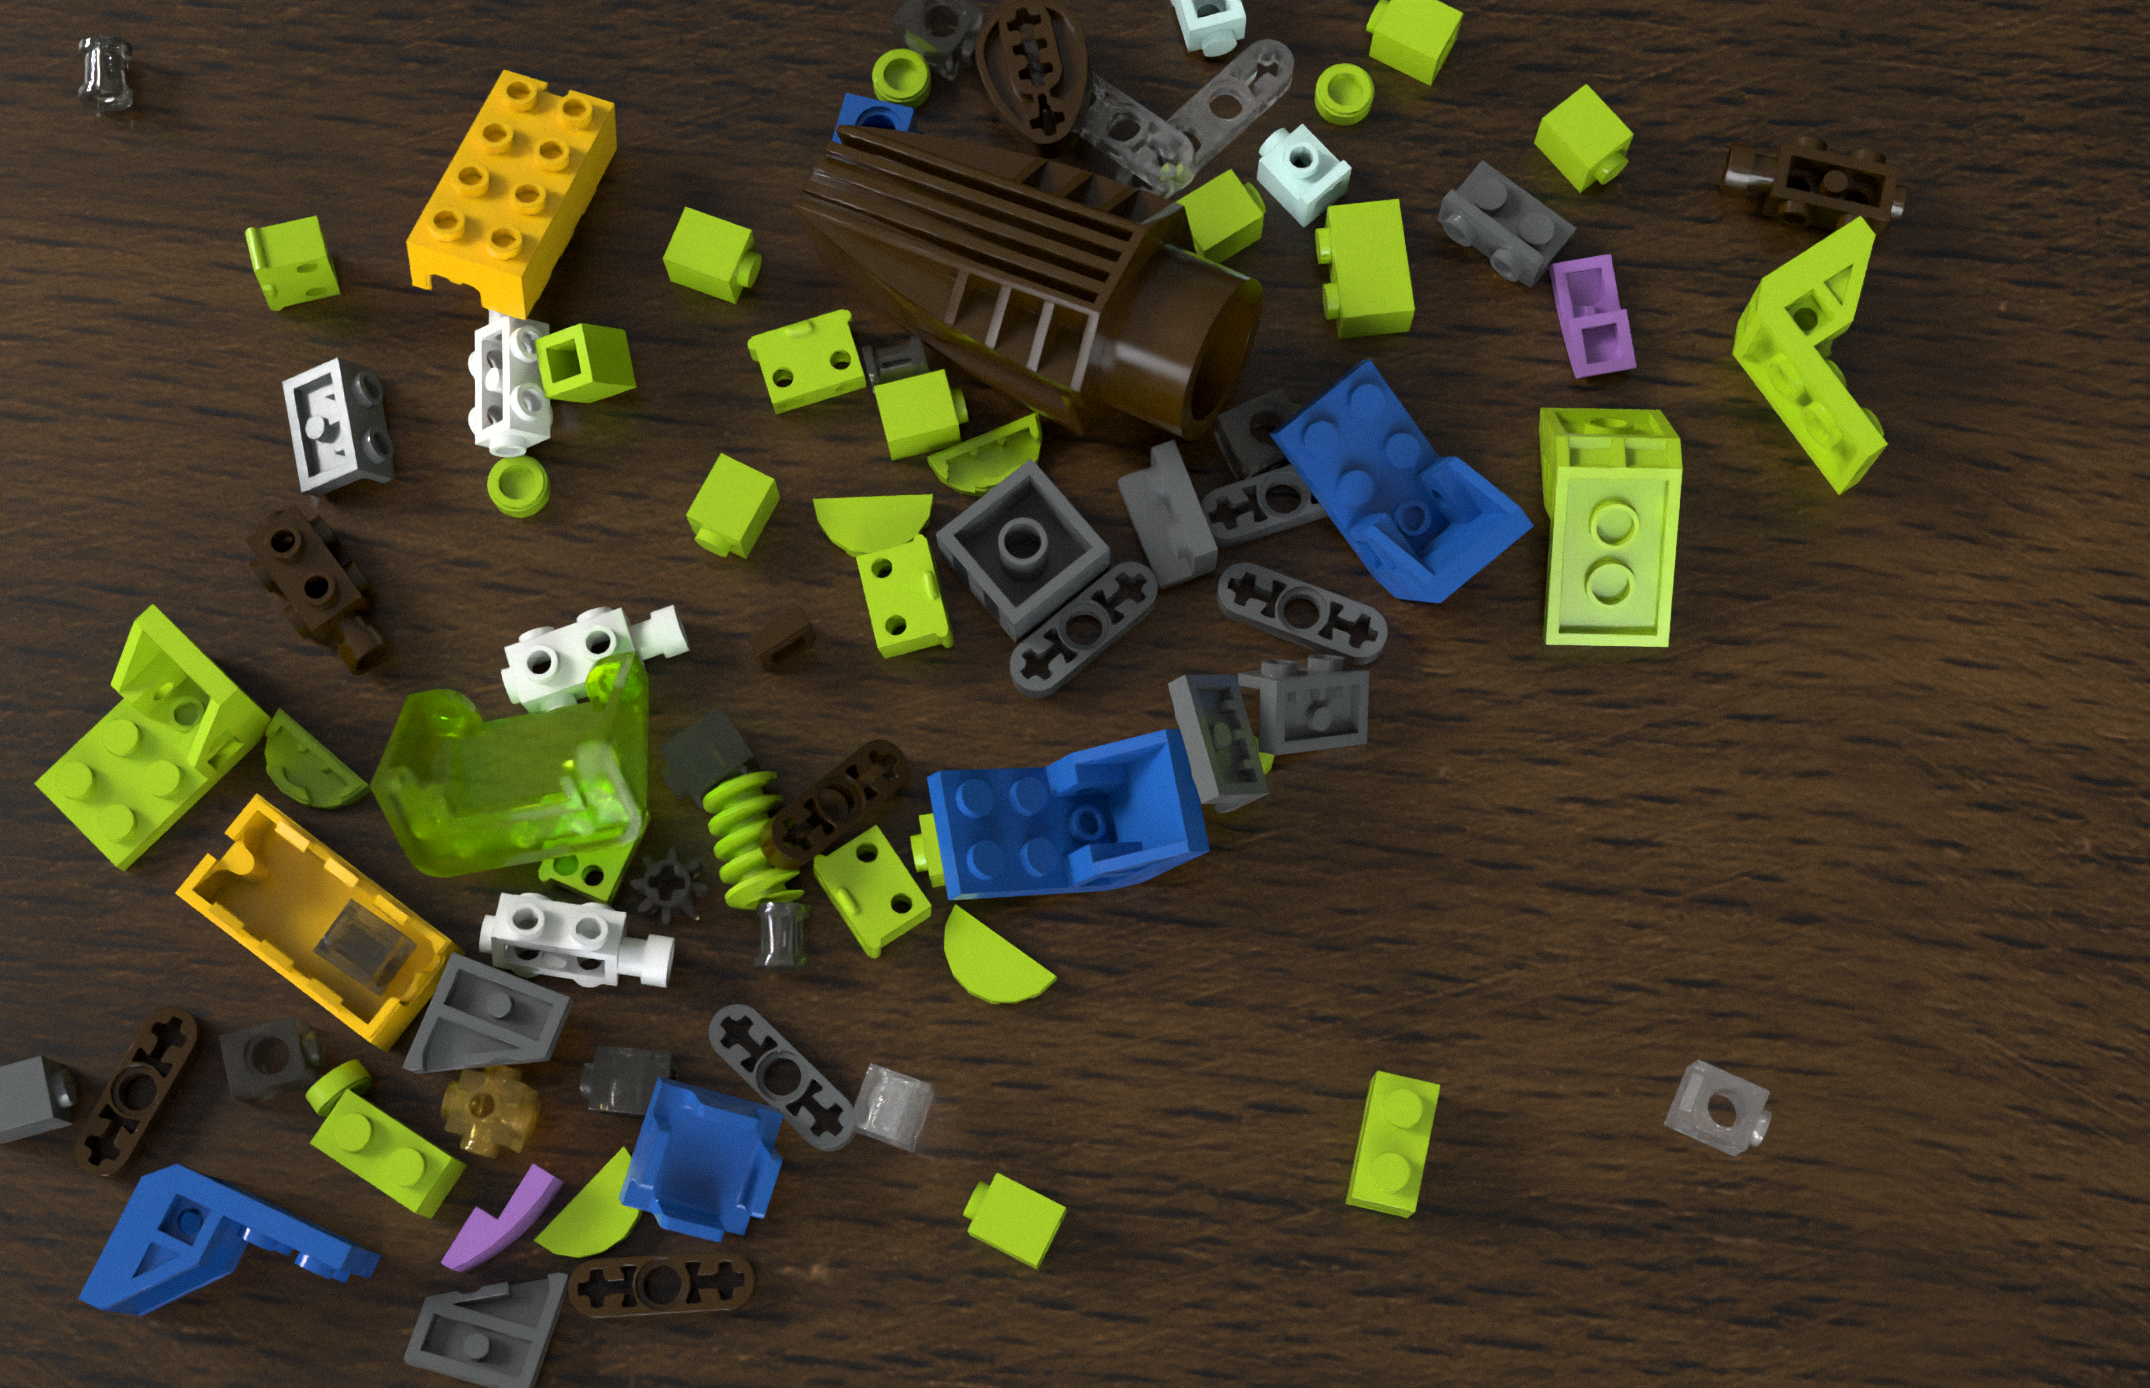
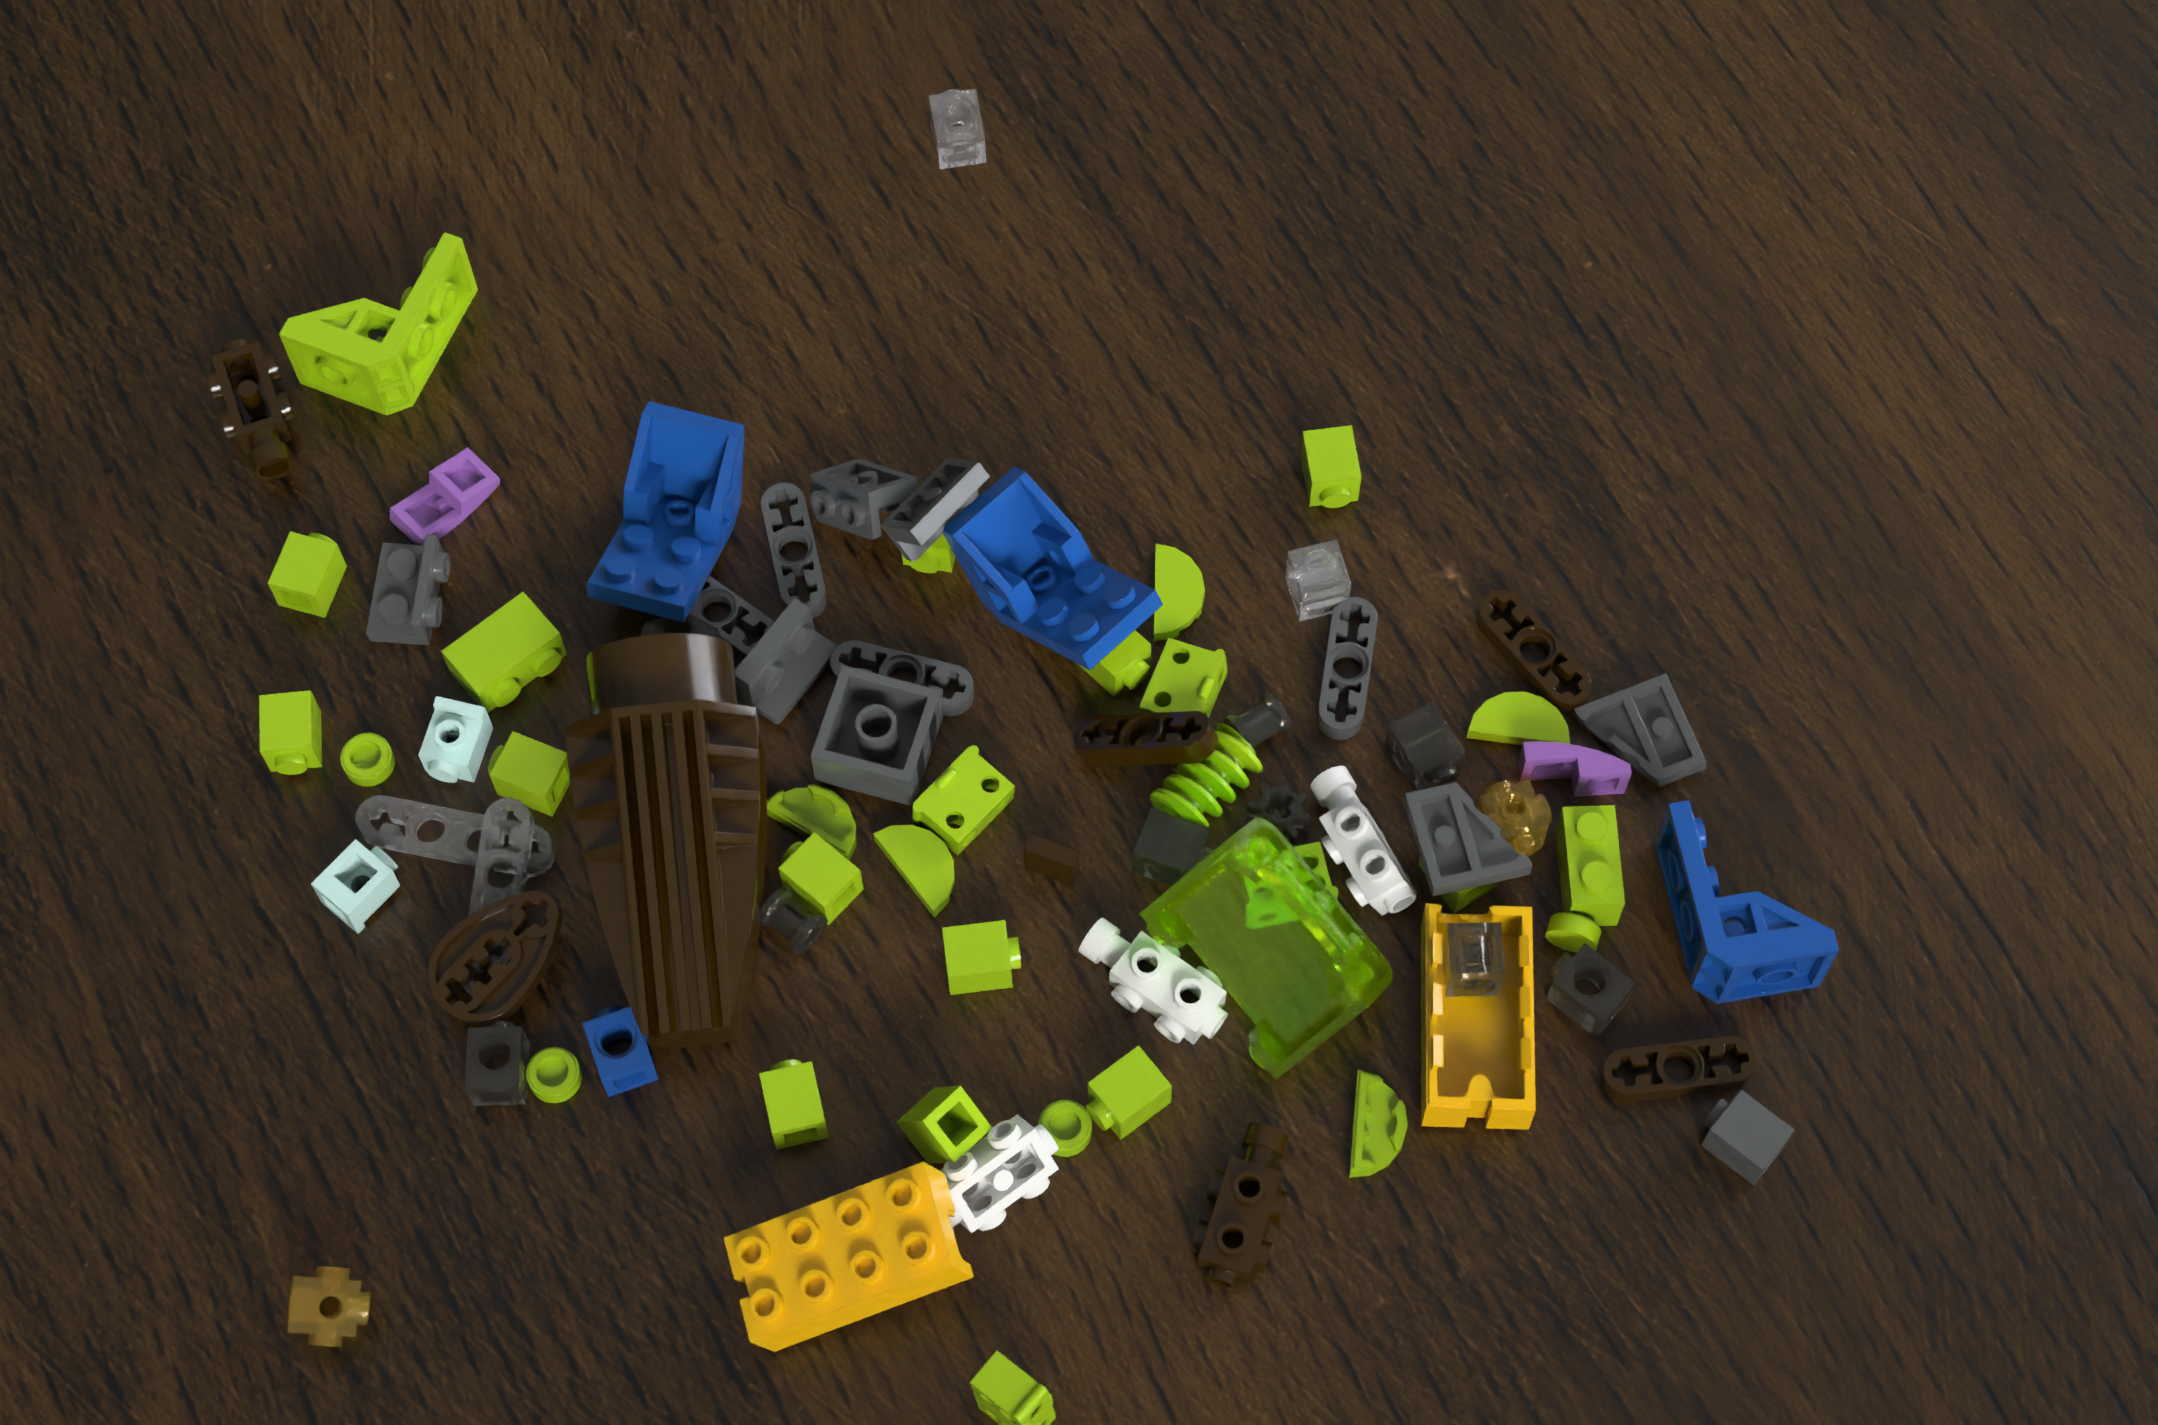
camera: 125 degrees left, 10 degrees down
(158, 746) = (1442, 1235): lime bracket -> none
(338, 426) = (1116, 1284): dark grey bracket -> none
(499, 554) = (1128, 1093): none -> lime brick
(703, 1161) = (1441, 662): blue panel -> none
(808, 358) = (830, 983): lime piece -> none
(1393, 1144) = (1117, 284): lime brick -> none
(1612, 525) = (579, 391): lime bracket -> none

